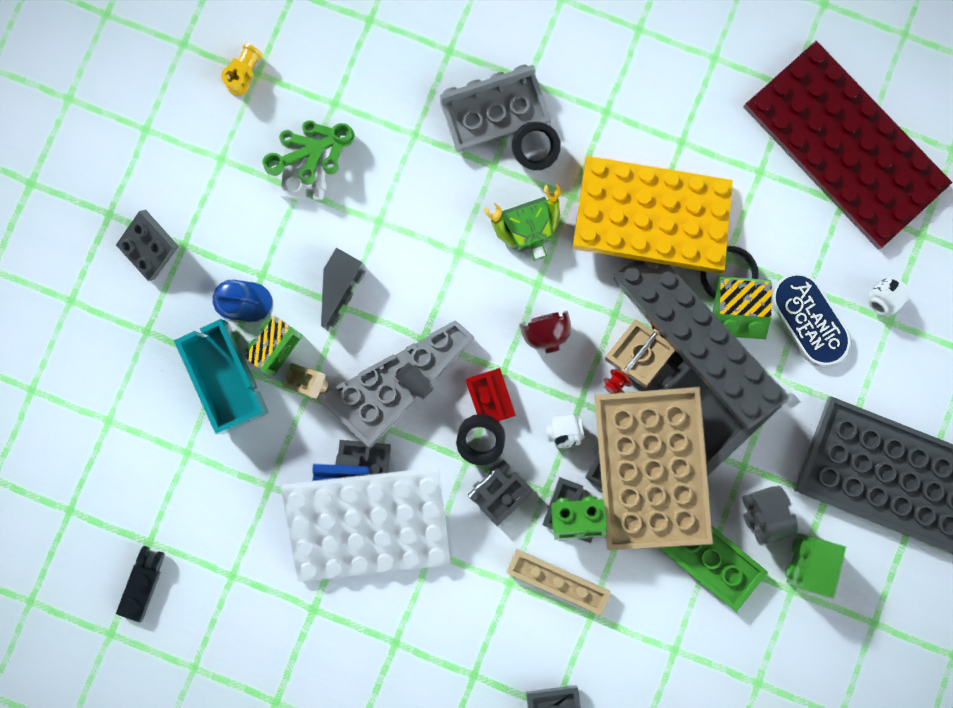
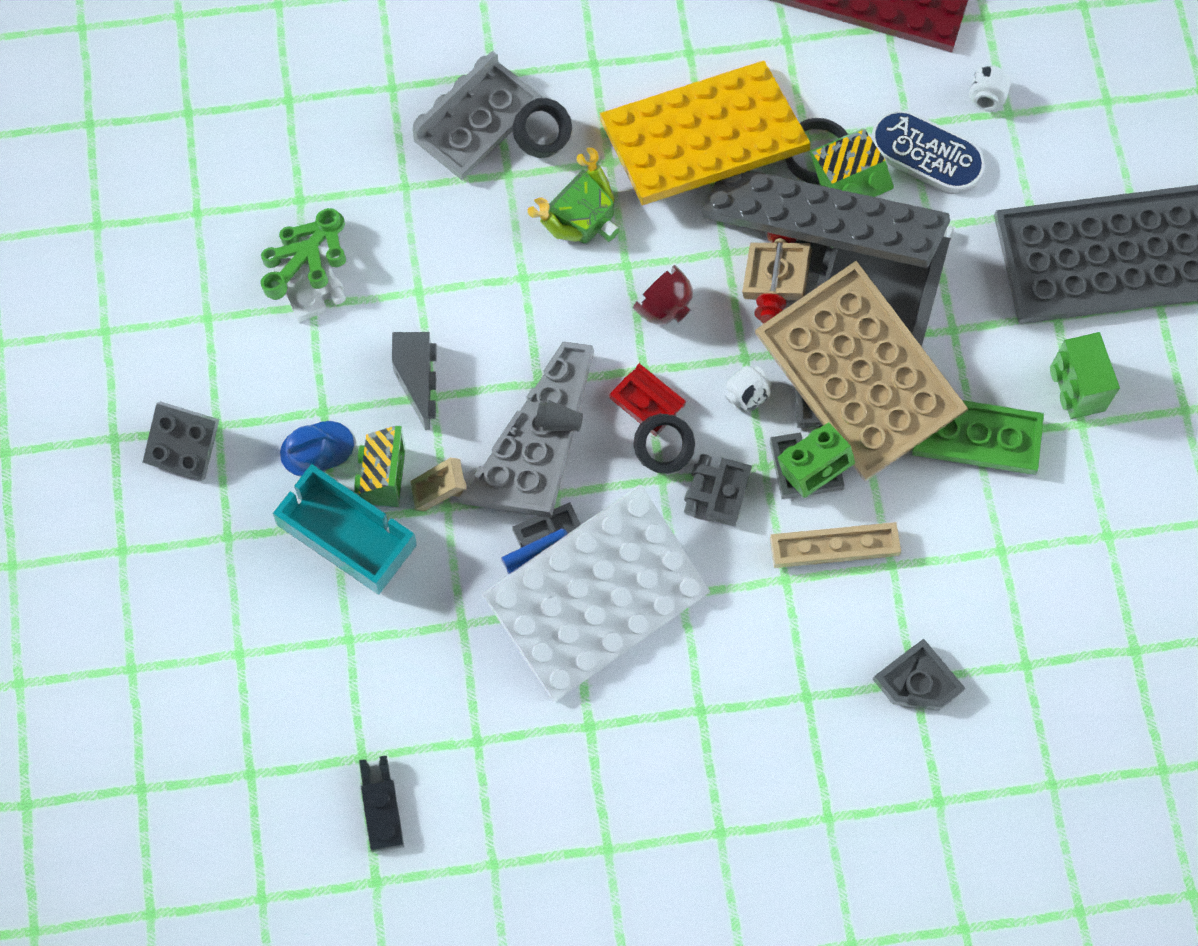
camera: 30 degrees left, 15 degrees down
(241, 70) = (179, 215): yellow connector -> none
(769, 514) = (1007, 353): dark grey brick -> none

